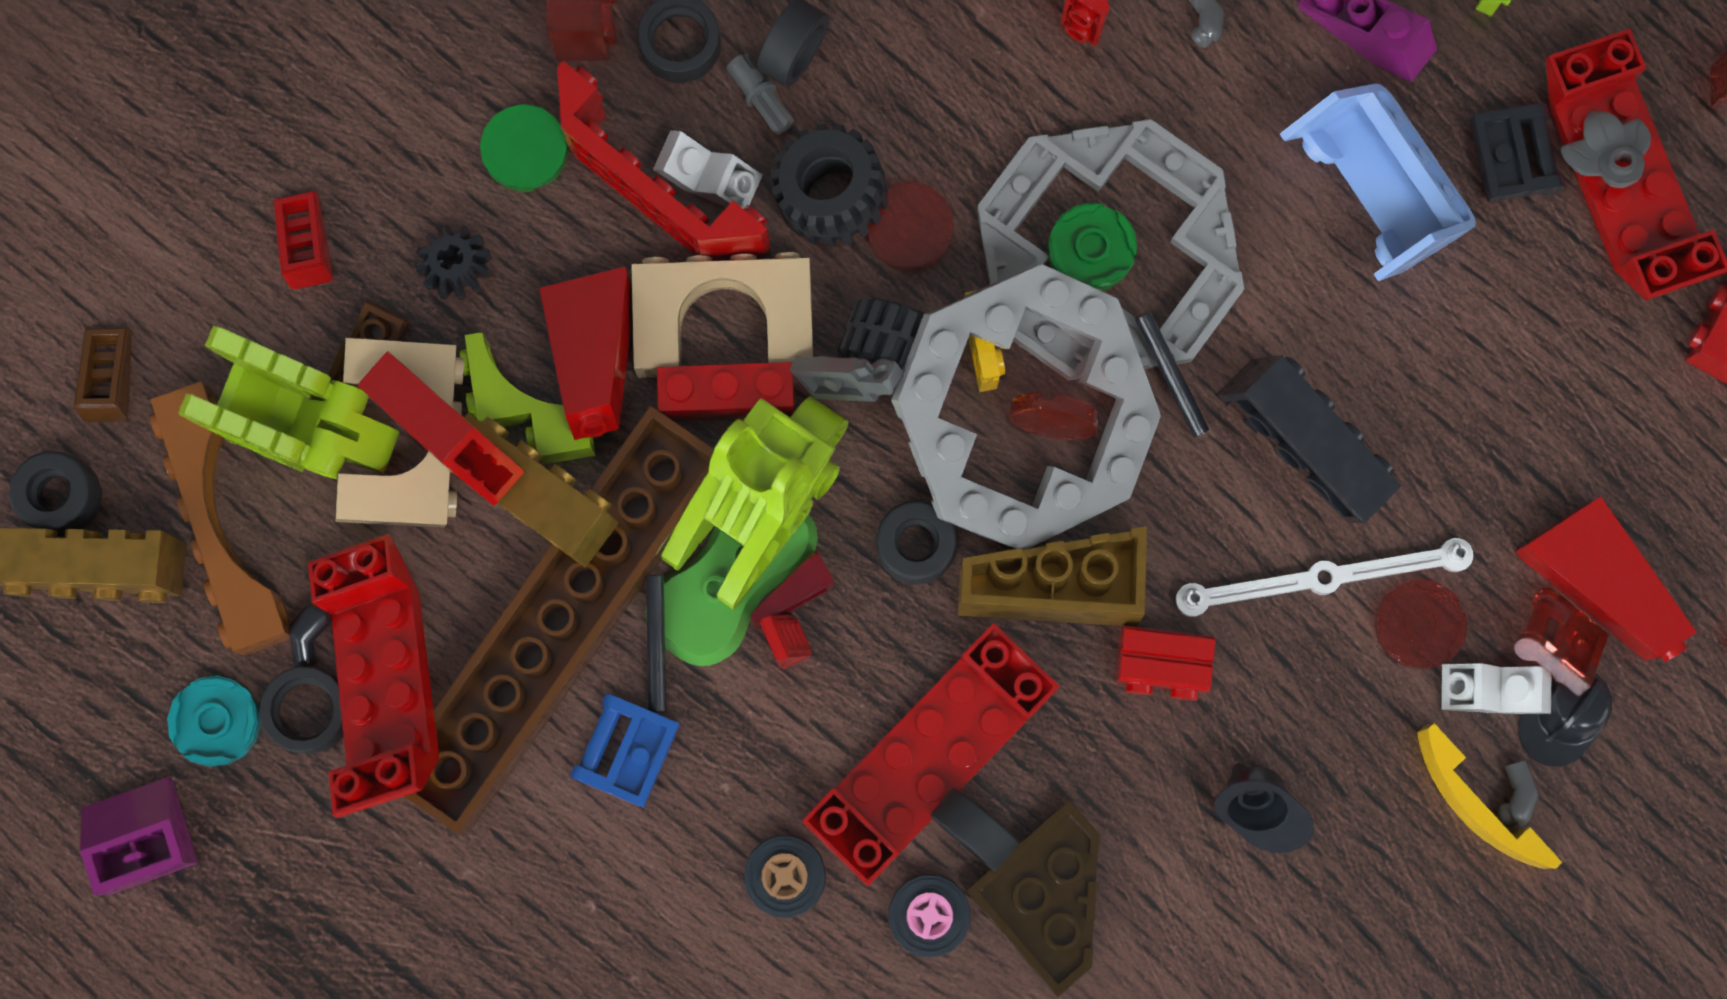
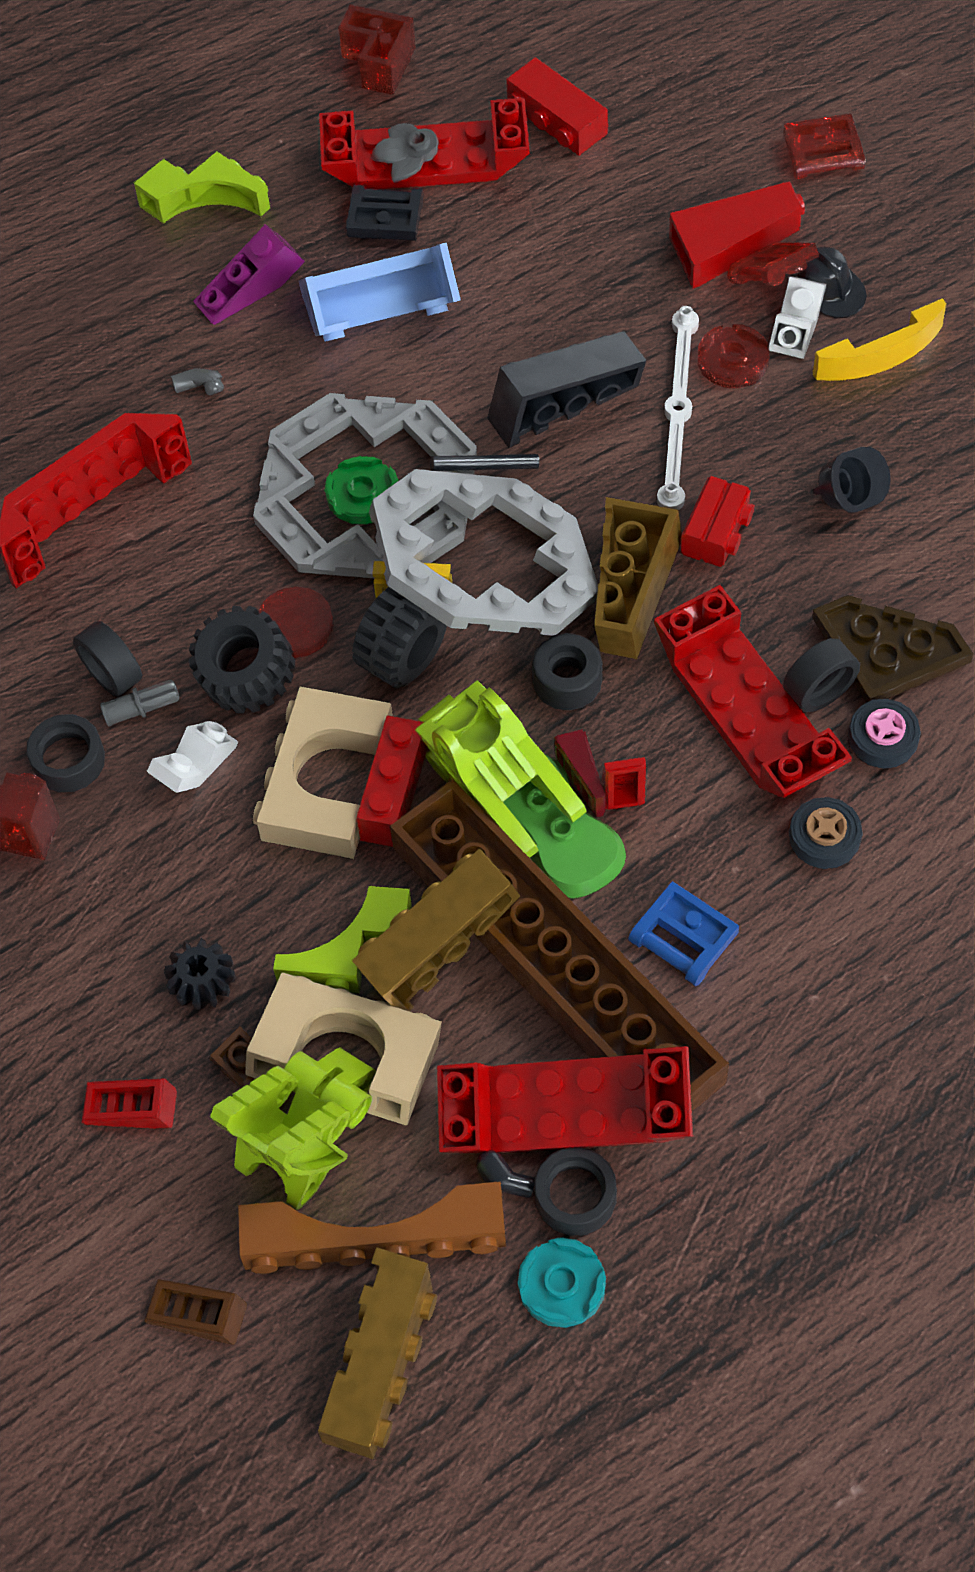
camera: 70 degrees left, 20 degrees down
(32, 478) = (286, 1351): black tyre -> none
(135, 838) = (656, 1366): magenta slope -> none
(440, 429) = (359, 970): red slope -> none
(524, 148) = (114, 899): green tile -> none
(590, 344) = (321, 869): red slope -> none
(656, 642) = (597, 885): black bar -> none
(730, 234) = (180, 805): red slope -> none
(846, 377) = (417, 667): dark grey hinge -> none
(1057, 419) = (496, 544): clear red tile -> none
(1524, 796) = (879, 320): dark grey arm -> none

